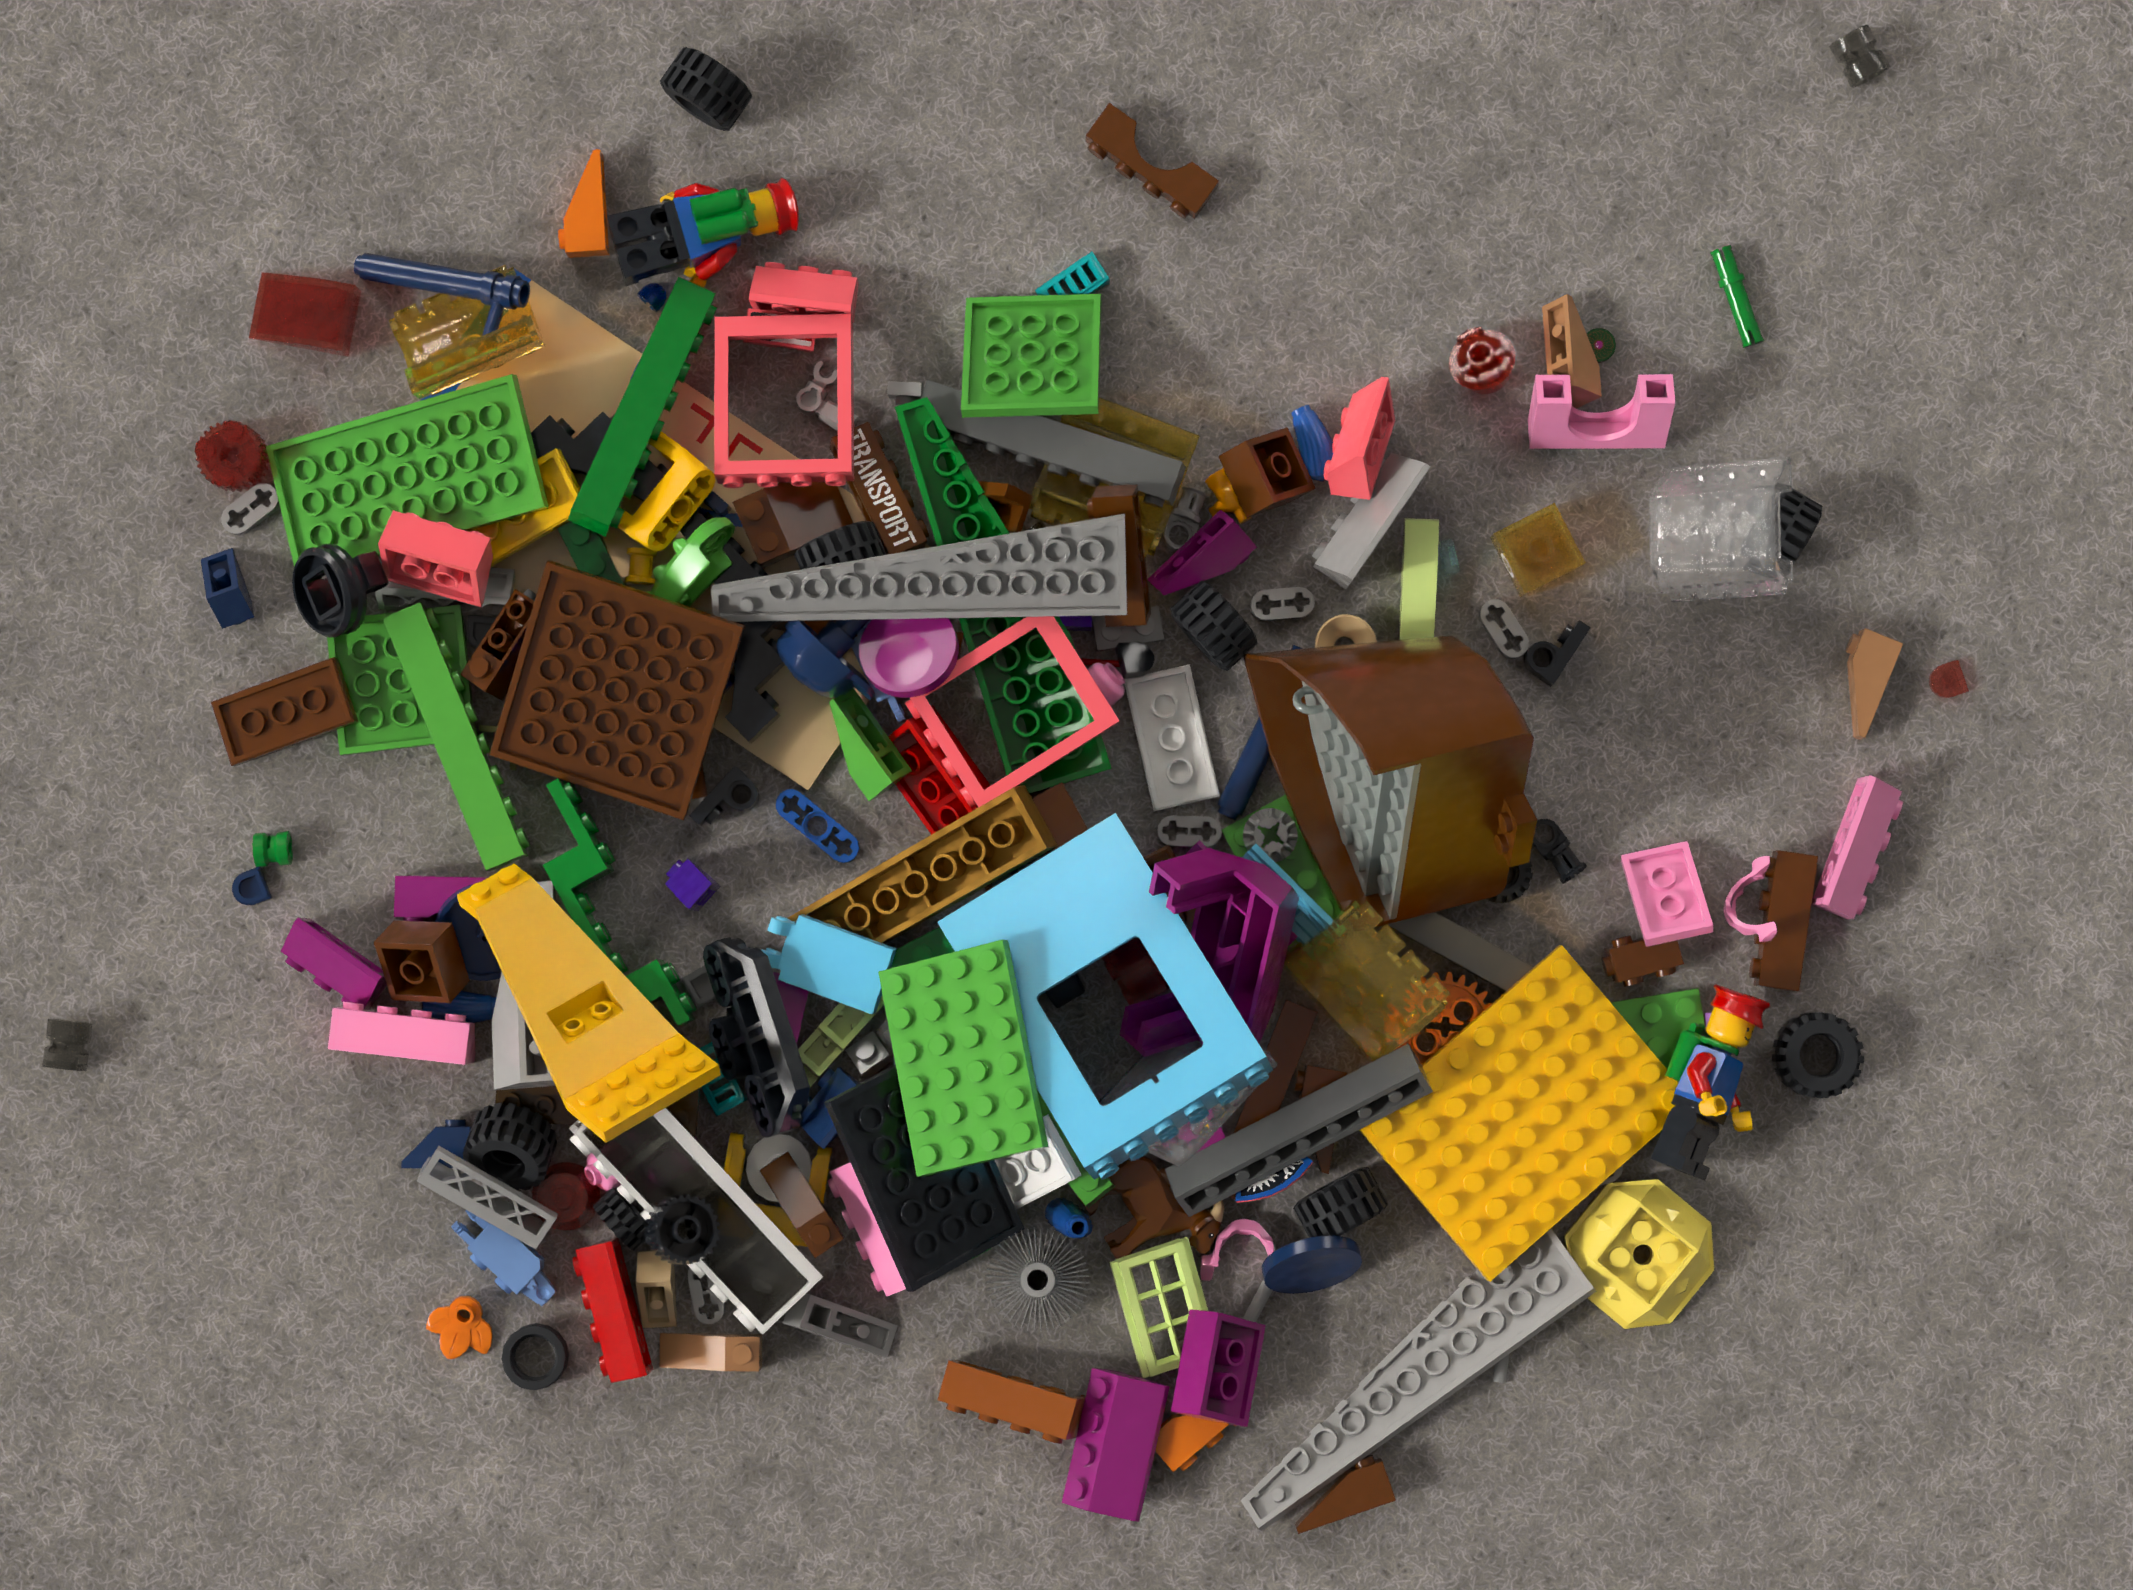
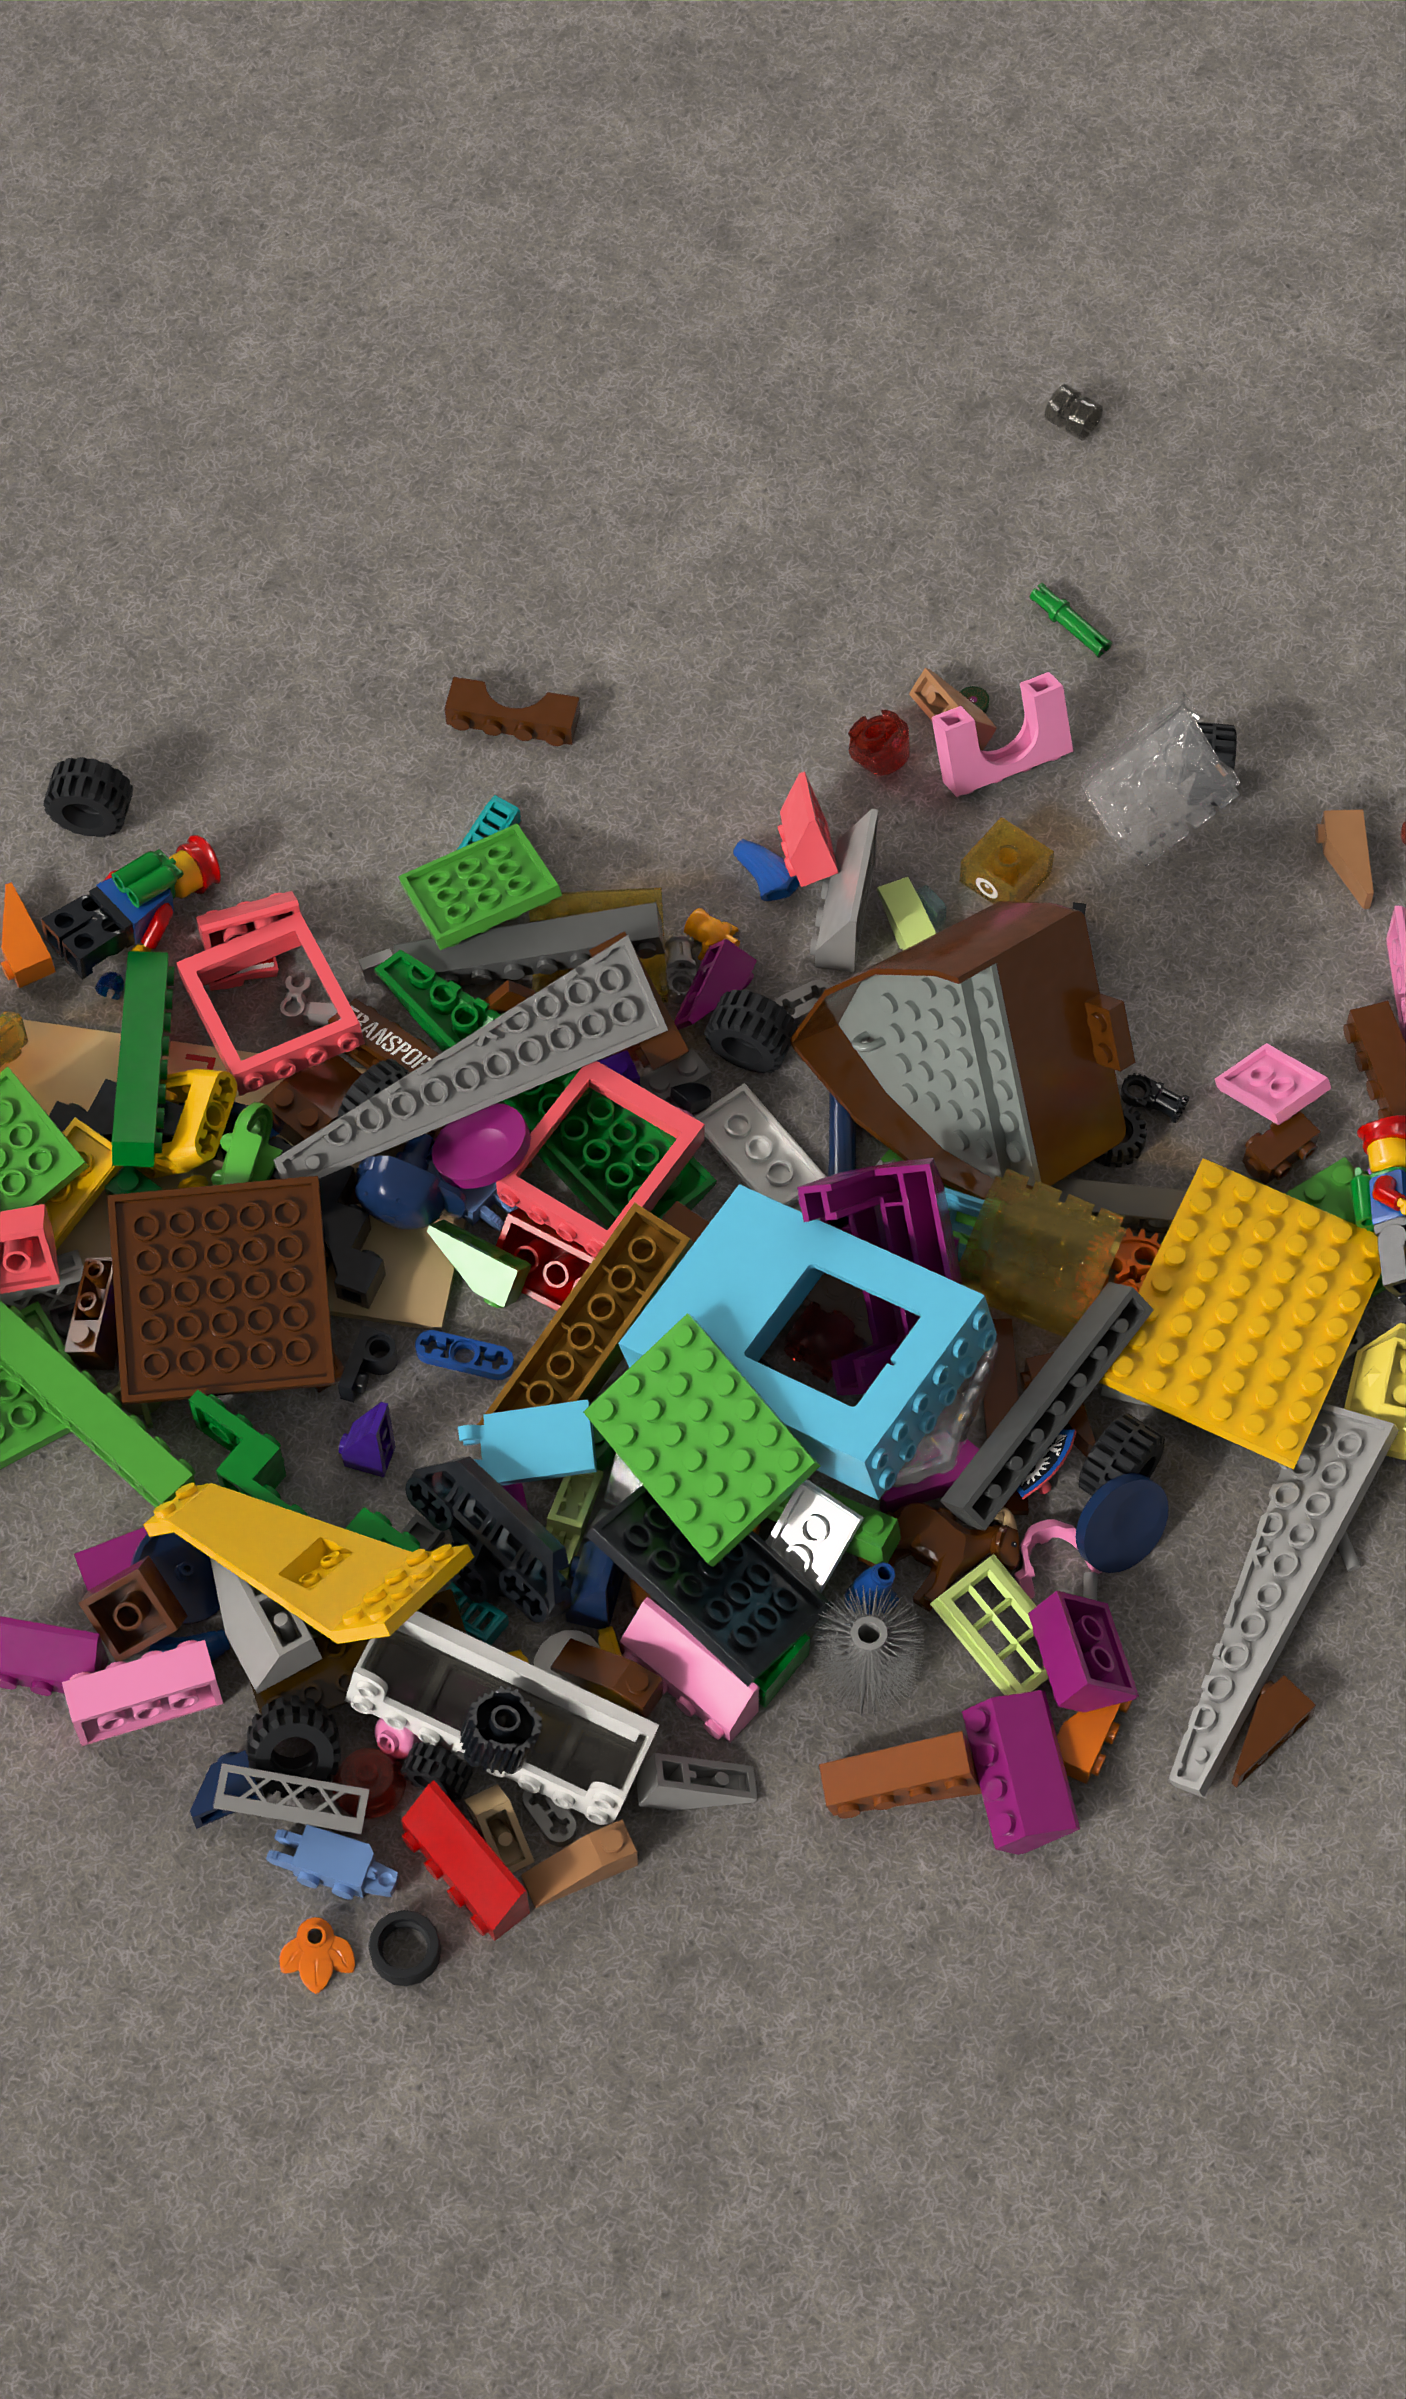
camera: 25 degrees left, 25 degrees down
(1266, 472) = (735, 896): reddish brown brick -> none
(1765, 931) = (1357, 1087): bright pink helmet -> none

